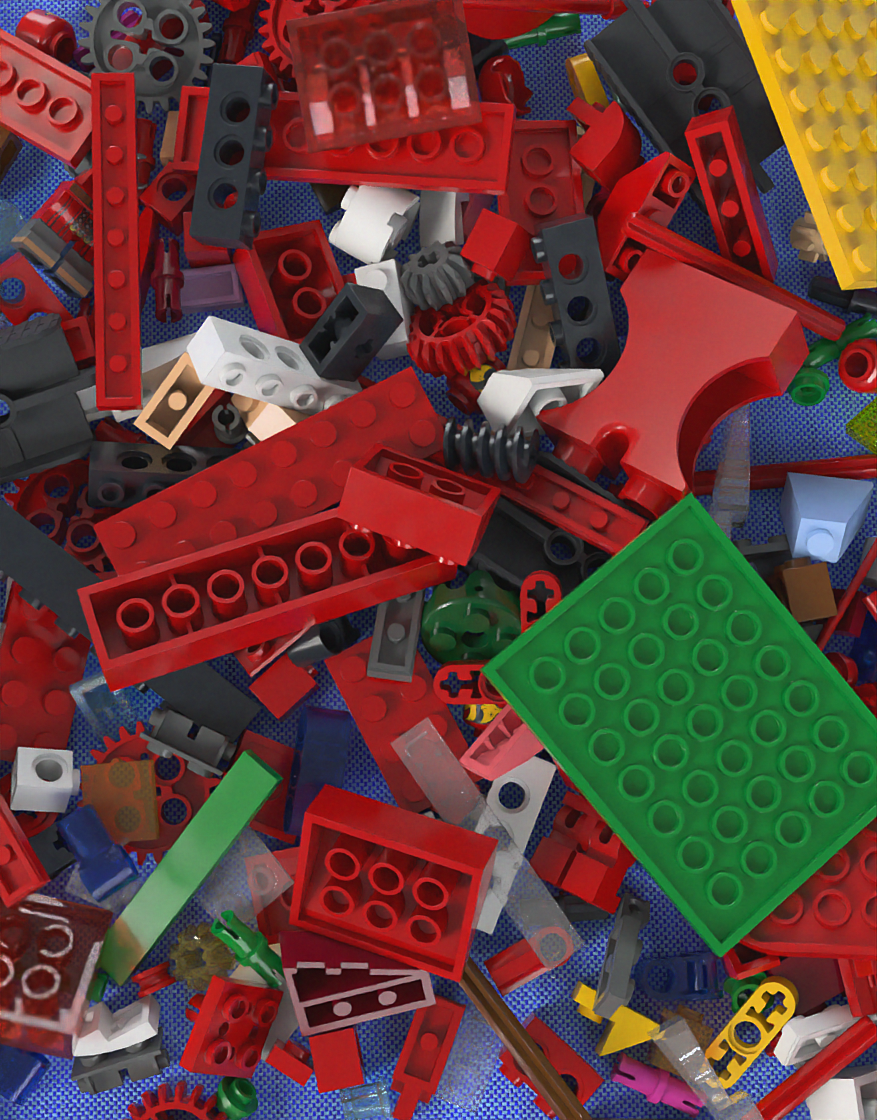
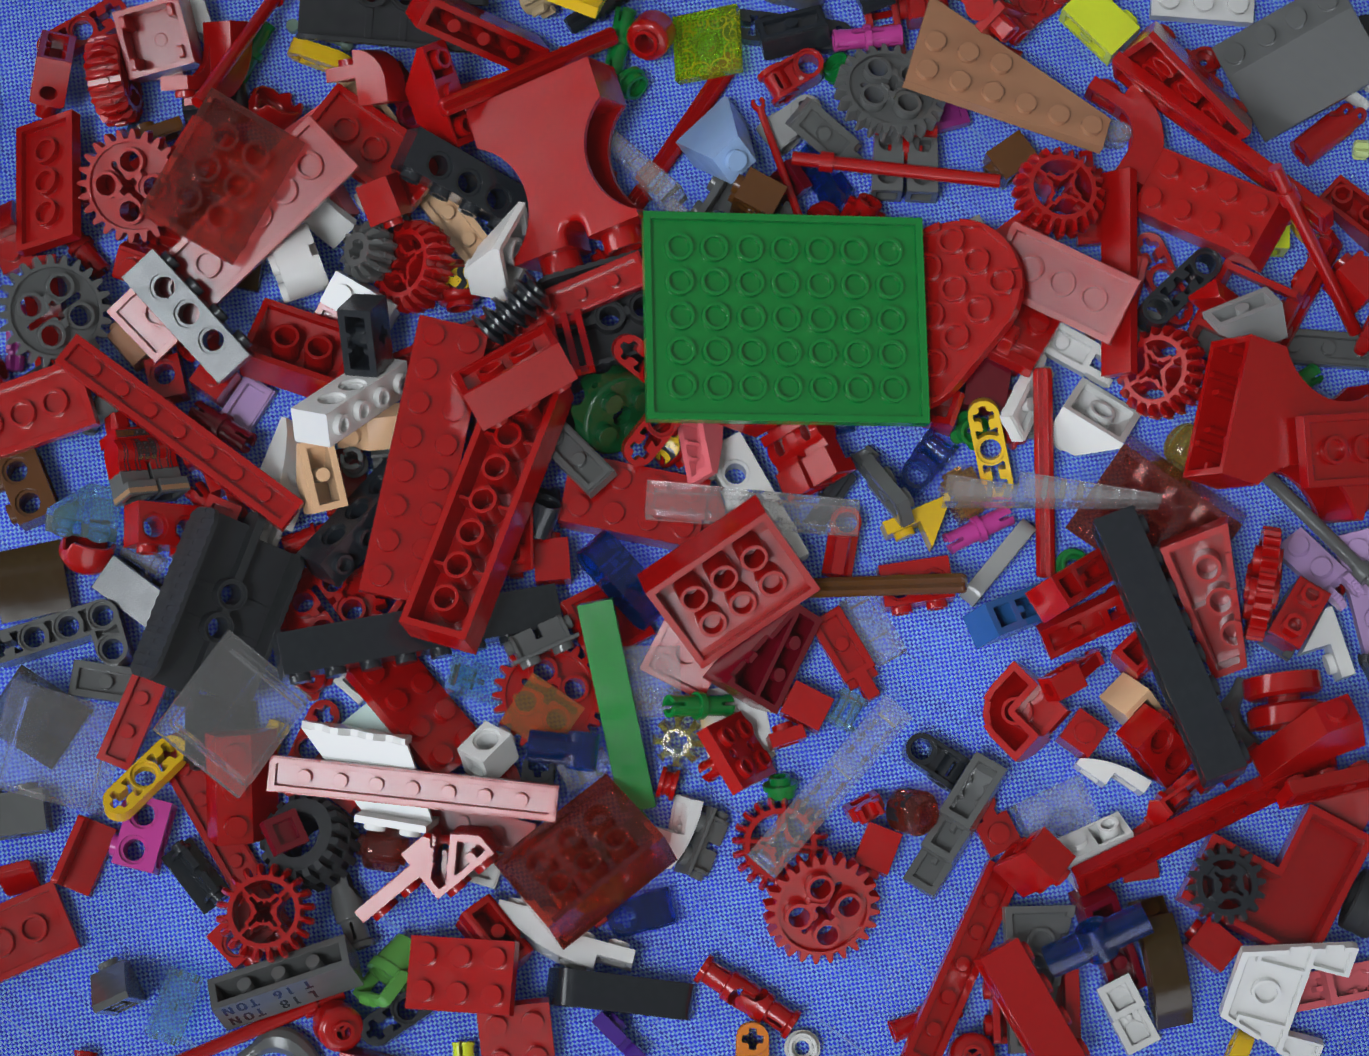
camera: 50 degrees left, 0 degrees up
(519, 508) = (565, 322): none -> red tile

